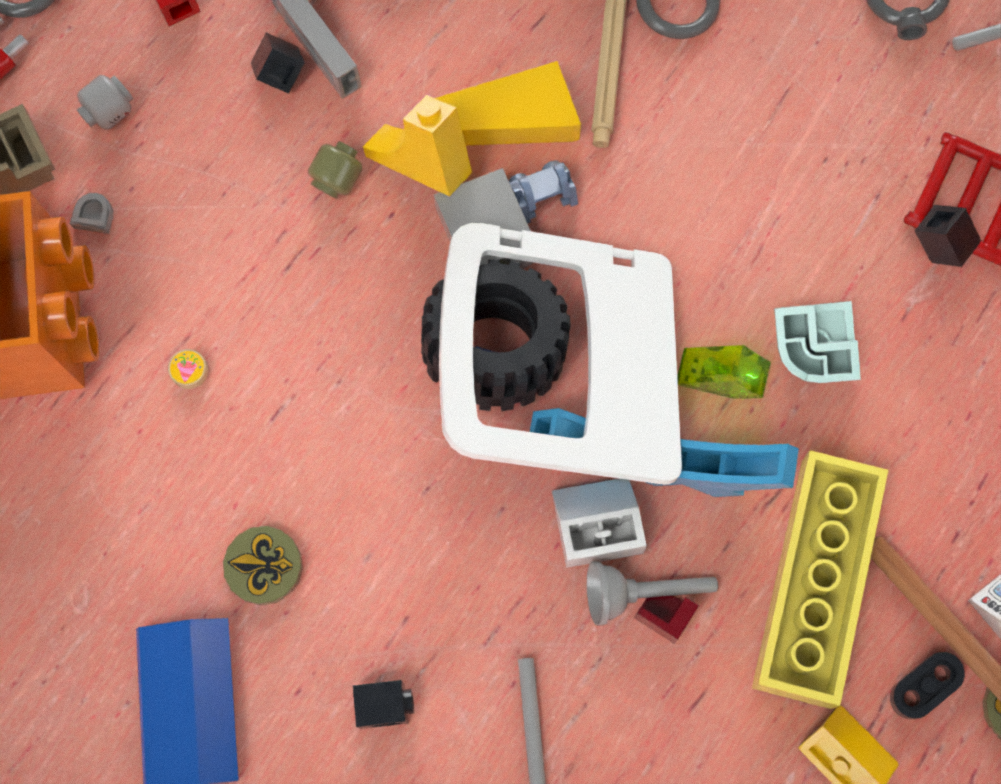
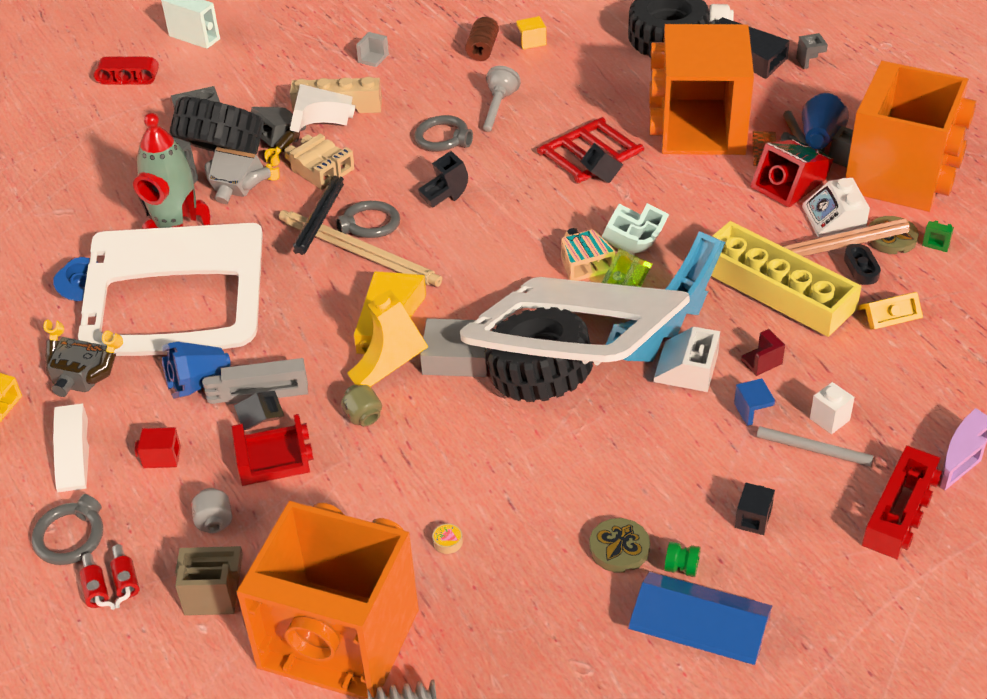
camera: 65 degrees left, 30 degrees down
(223, 110) = (272, 453): none -> red panel
(264, 648) = (685, 559): none -> green wheel
(548, 182) = (451, 306): sand blue piece -> none
(566, 635) = (751, 397): none -> blue panel
(600, 741) = (831, 408): none -> white brick
(610, 591) = (737, 366): light grey piece -> none
(743, 298) = (585, 254): none -> light nougat torso
(788, 52) = (450, 180): none -> black brick

